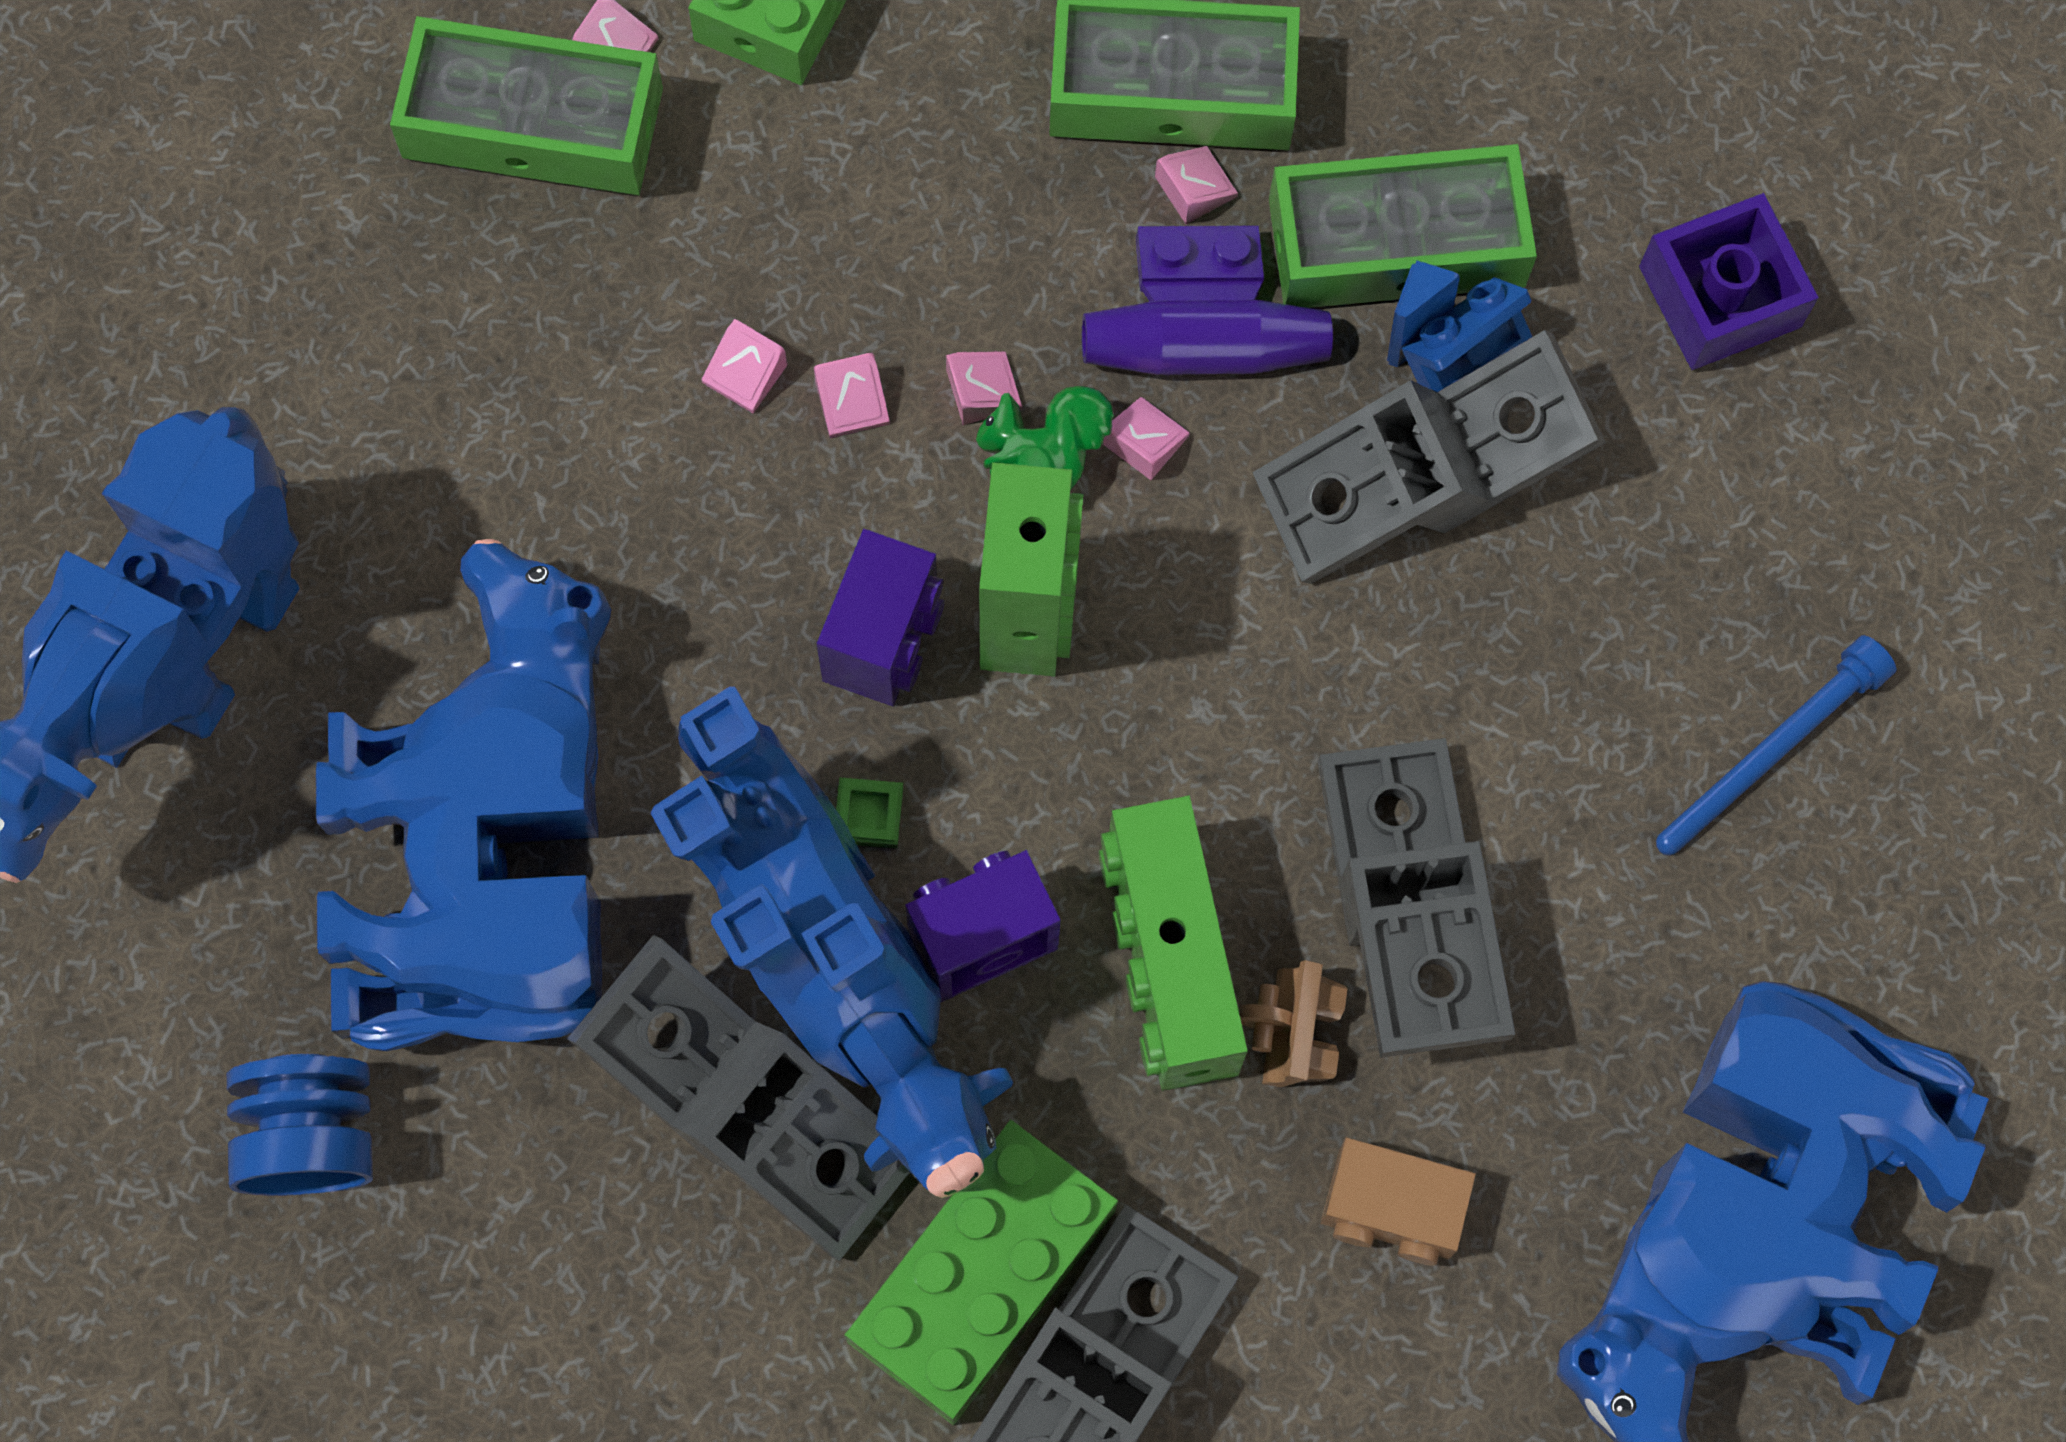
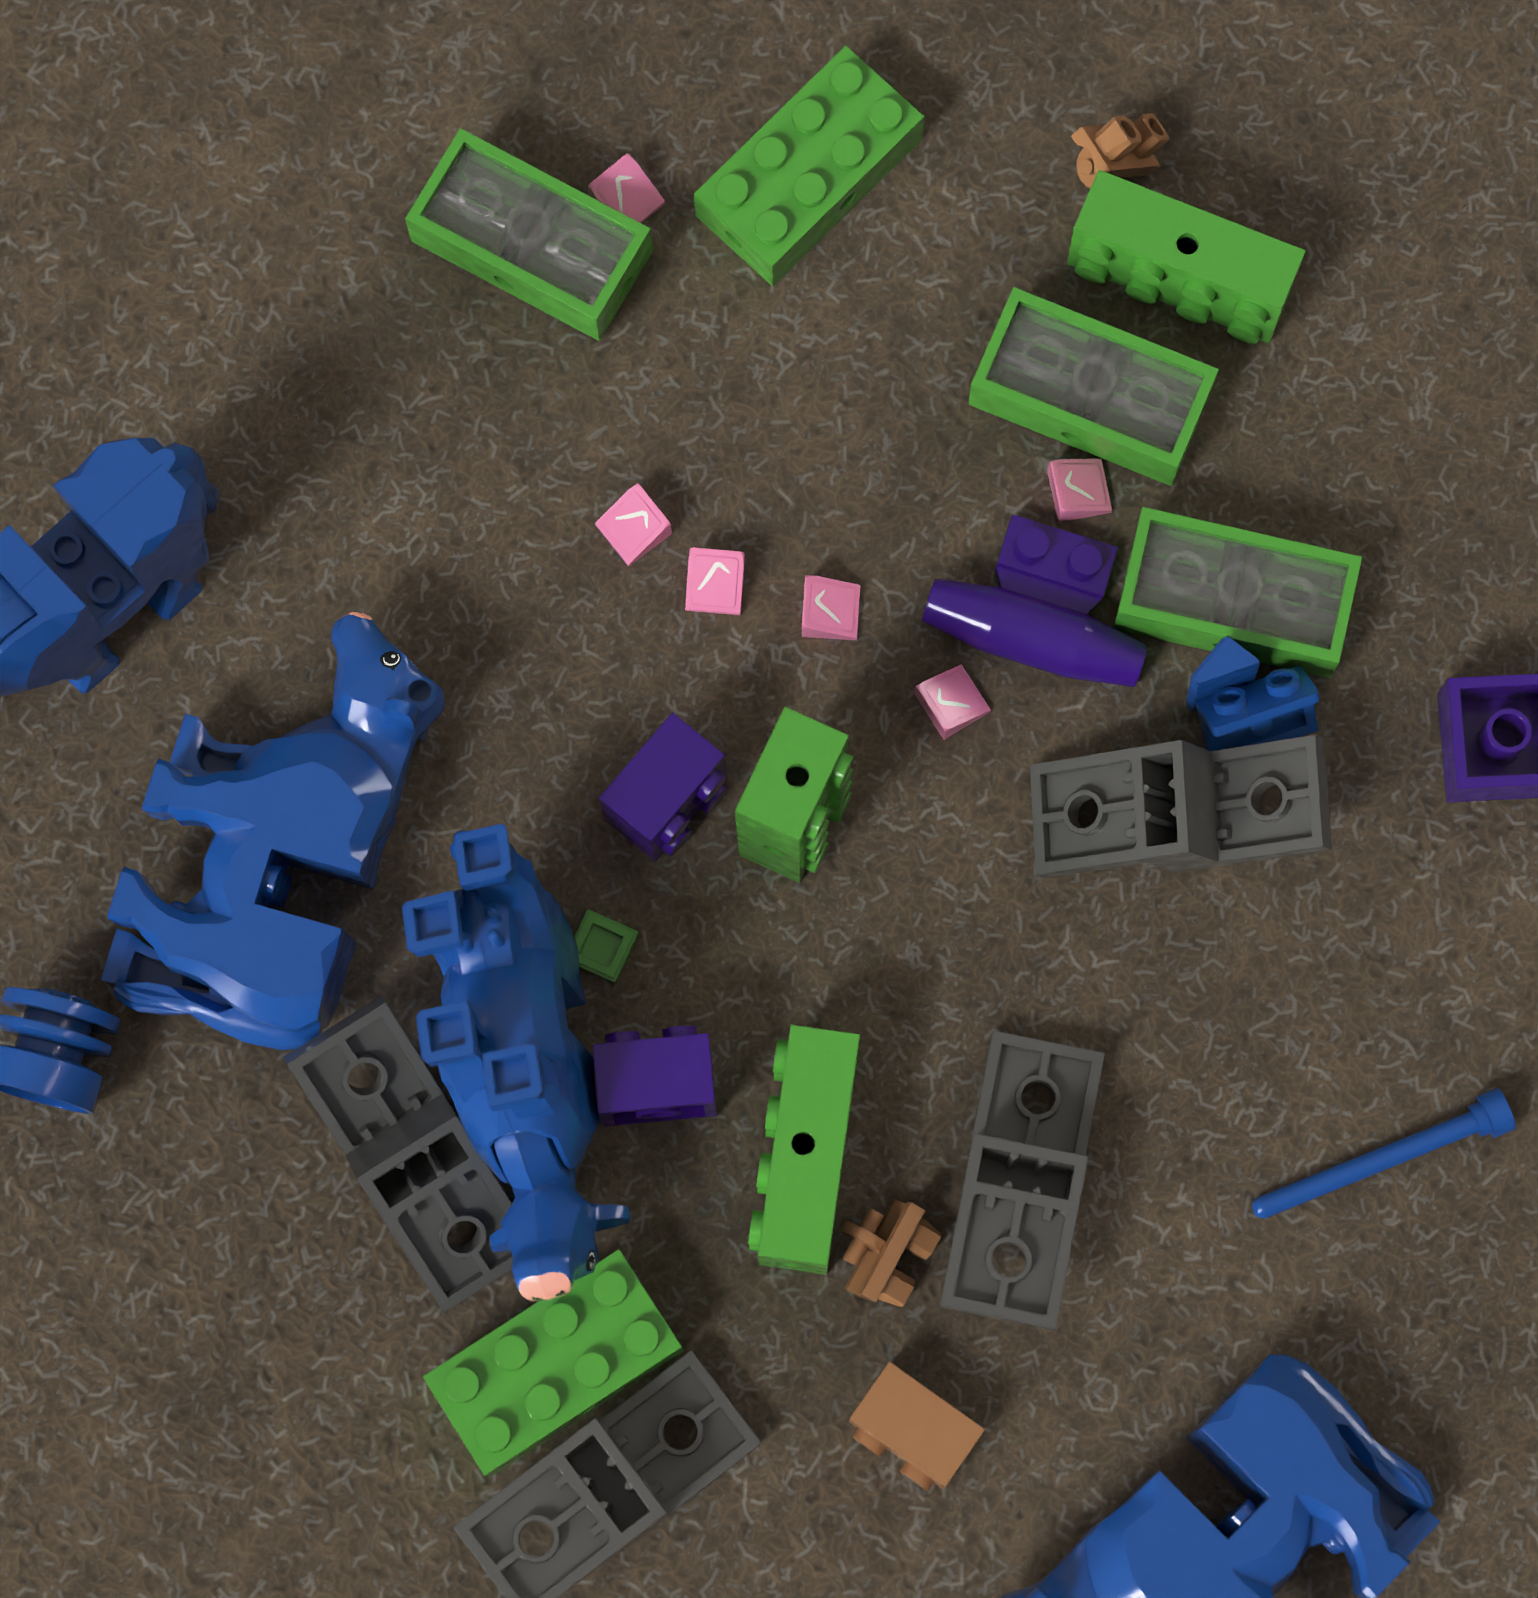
camera: 25 degrees right, 5 degrees up
(1074, 423) = (860, 696): green animal -> none

